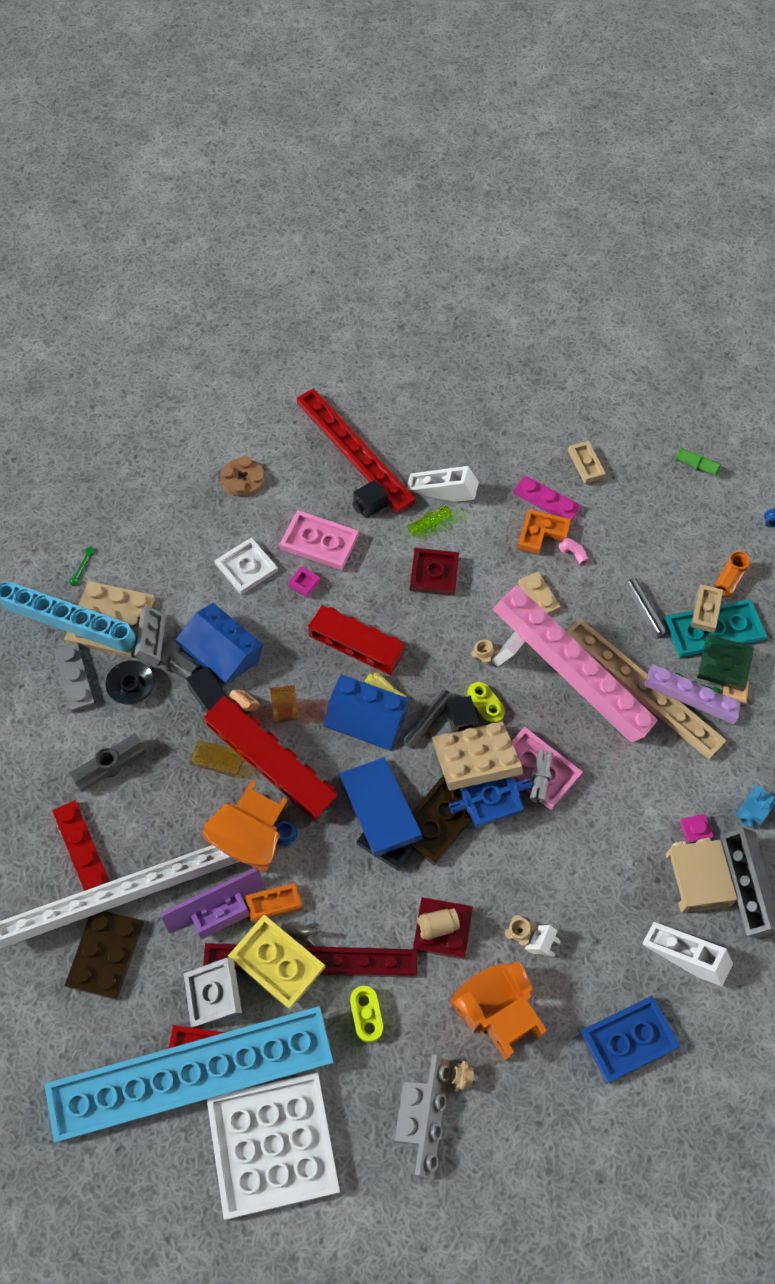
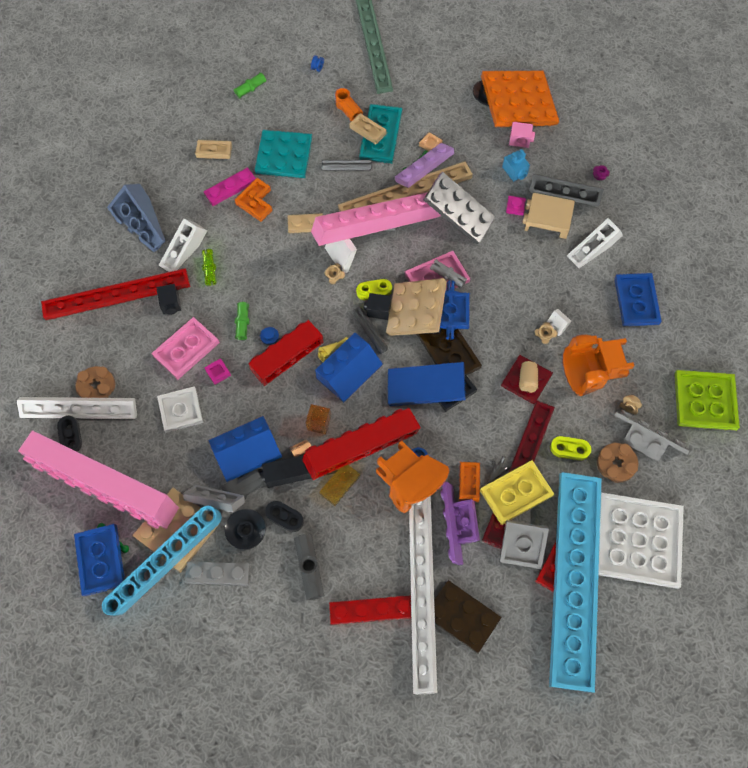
camera: 65 degrees left, 5 degrees up
(52, 562) = (99, 559): none -> blue plate
(128, 524) = (99, 480): none -> bright pink brick
(157, 717) = (285, 516): none -> black plate
(175, 478) = (70, 435): none -> black plate
(208, 473) = (77, 407): none -> white plate
(370, 1101) = (613, 472): none -> medium nougat plate
(372, 615) = (269, 335): none -> blue plate
(377, 580) = (242, 321): none -> bright green pin
(434, 571) = (253, 280): dark red plate -> none
(466, 419) = (136, 211): none -> sand blue wedge
(515, 1185) = (706, 400): none -> lime plate
(578, 550) = (281, 185): bright pink arm -> none
(623, 535) = (283, 154): none -> teal plate
(643, 755) = (459, 208): none -> plate
(725, 662) = (412, 136): clear green plate -> none

